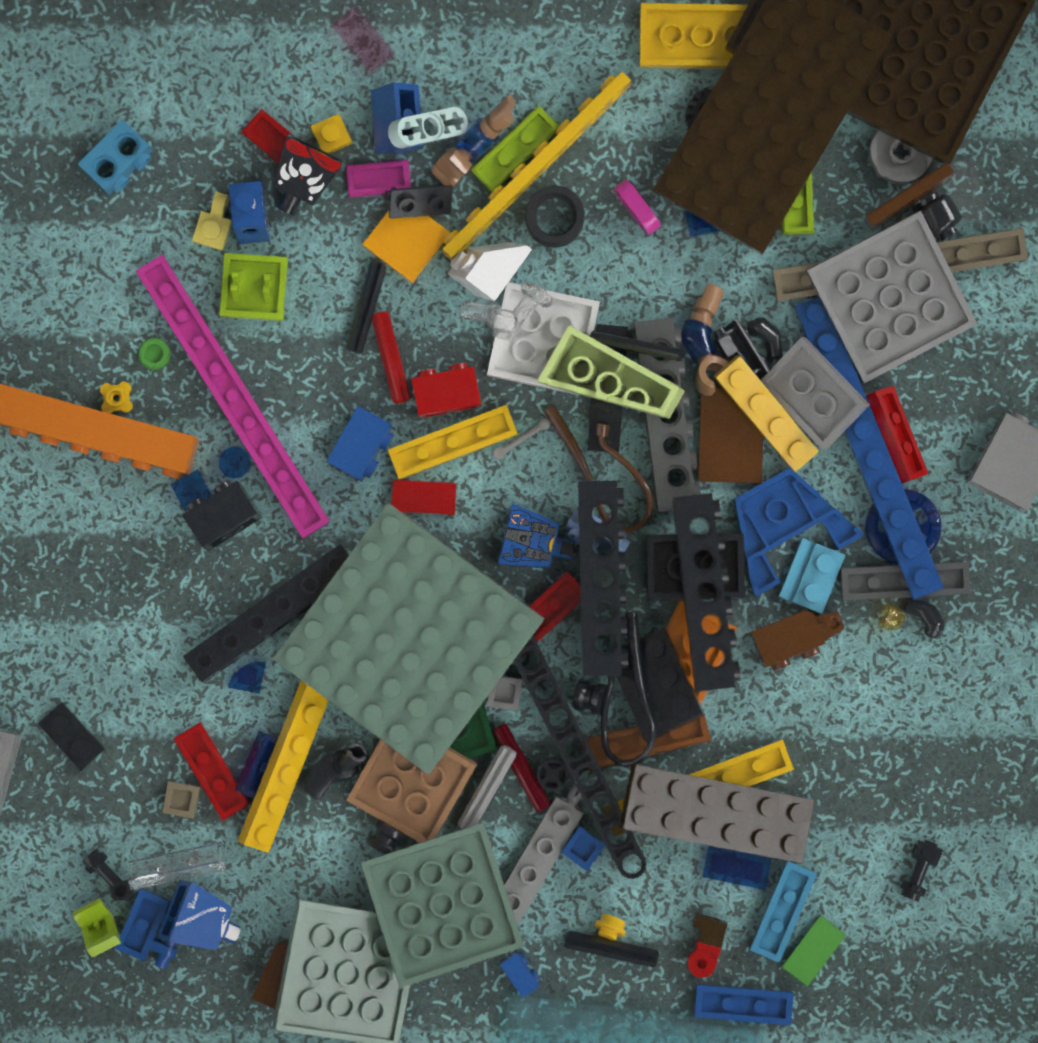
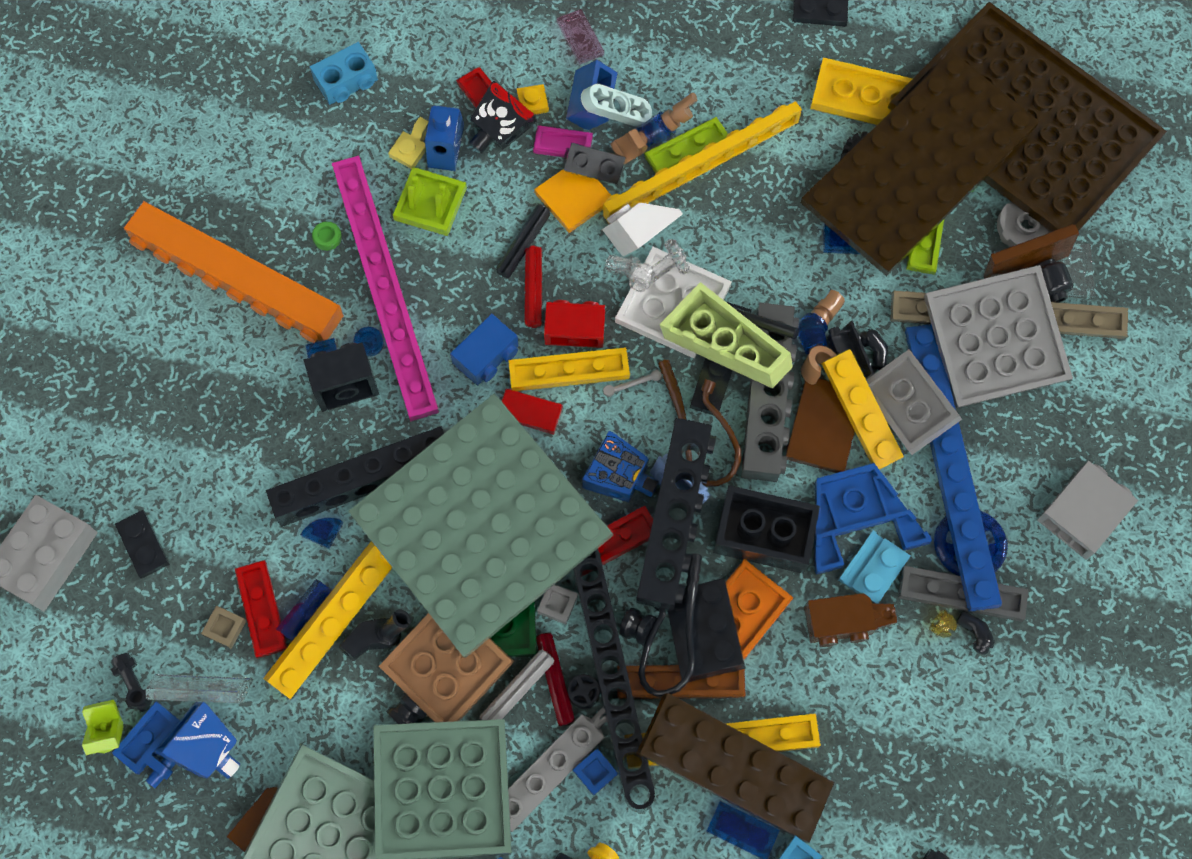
camera: 10 degrees right, 15 degrees down
(122, 390) = (289, 257): yellow plate -> none
(569, 197) = (708, 185): black tyre -> none
(637, 207) = (783, 214): dark pink beam -> none
(706, 509) = (756, 626): black brick -> none
(897, 434) = (980, 459): red plate -> none

